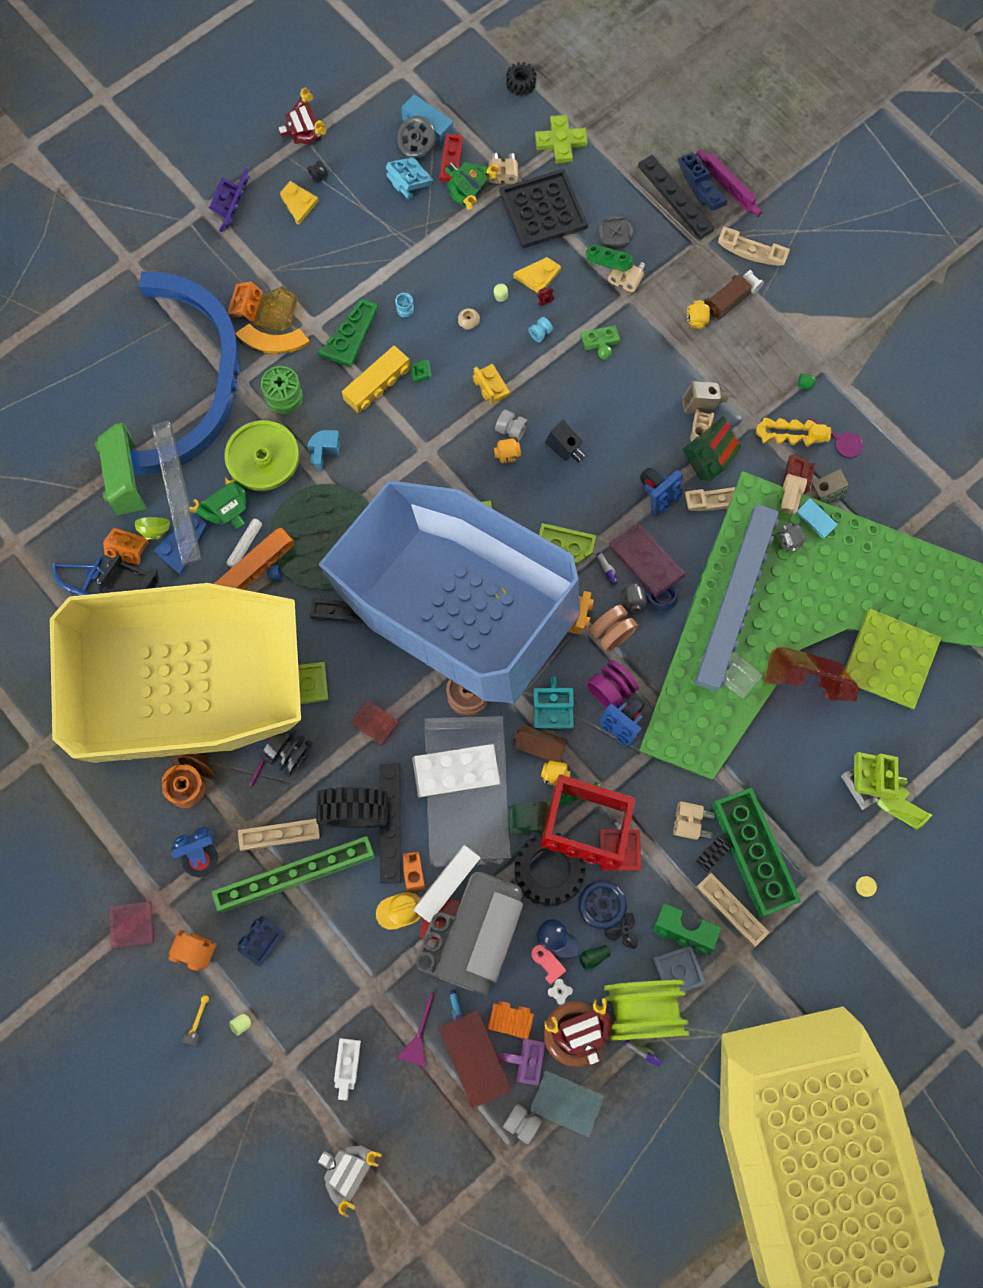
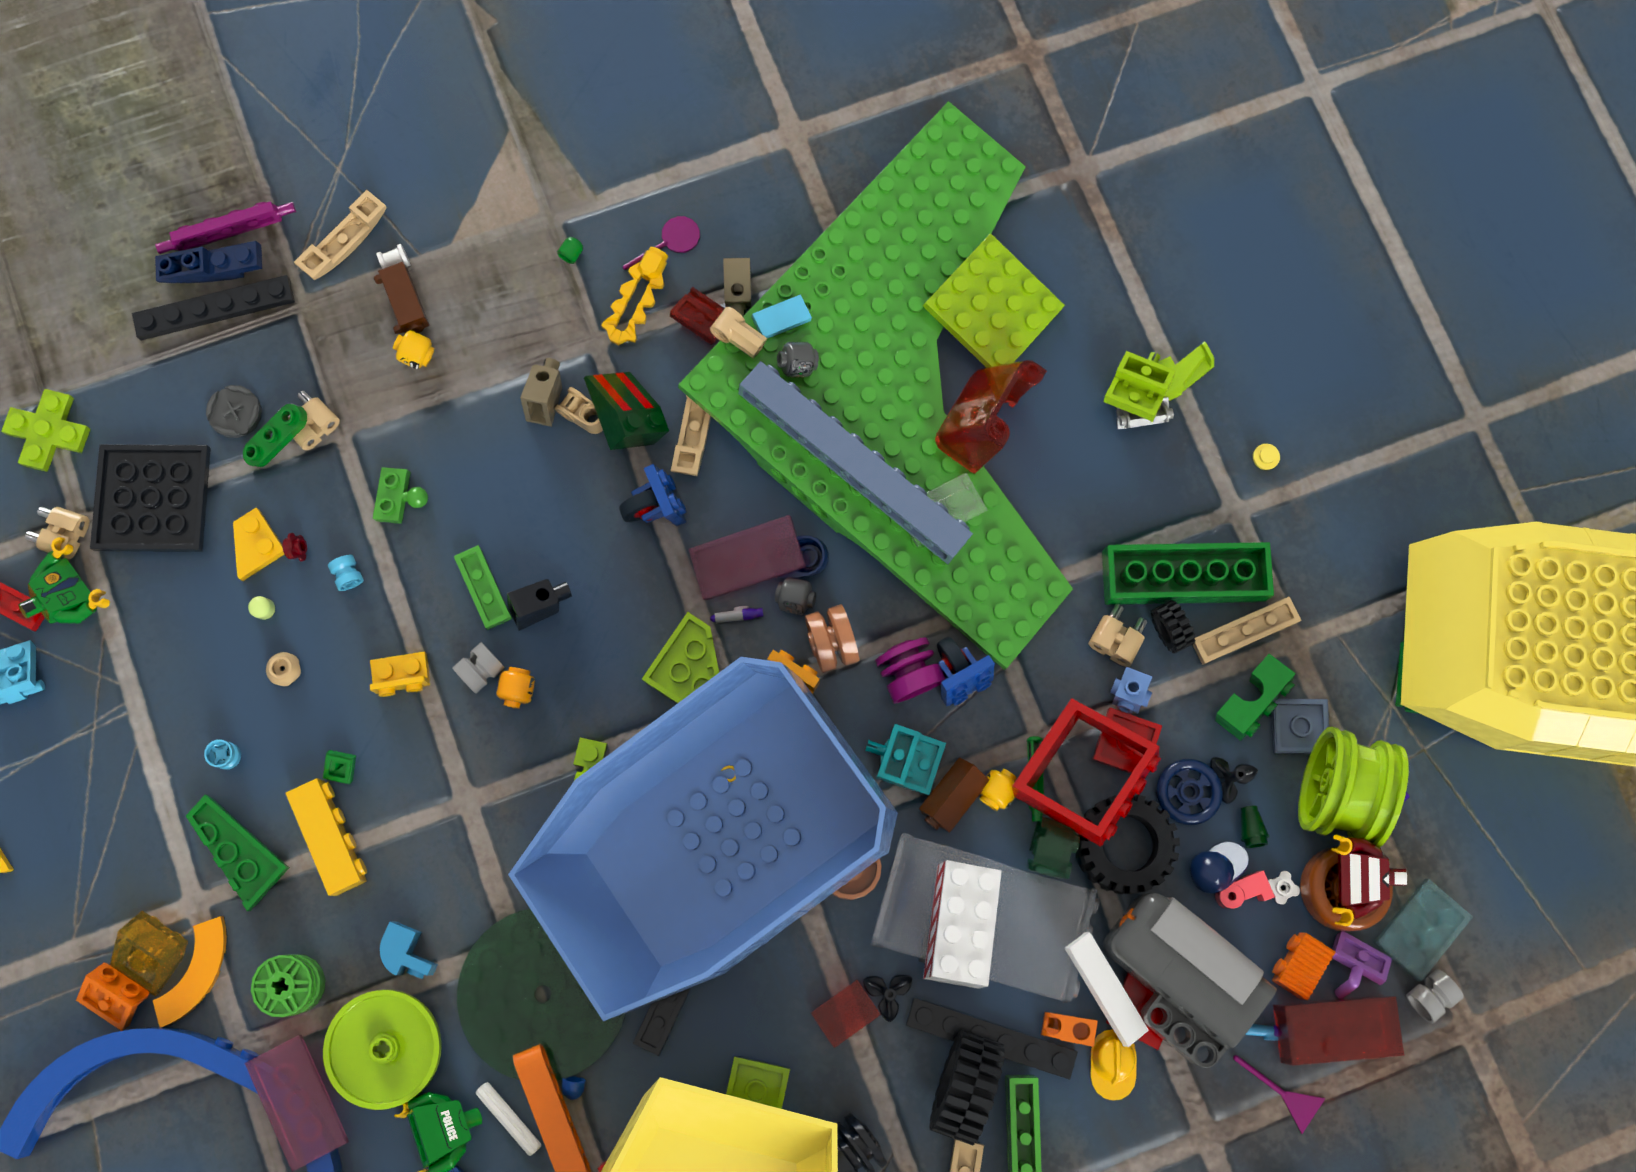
camera: 75 degrees left, 5 degrees up
(215, 418) = (296, 1102): none -> clear pink tile
(398, 738) = (898, 986): none -> black plant
(563, 409) = (482, 587): none -> bright green plate
(656, 840) = (1131, 691): none -> medium blue brick

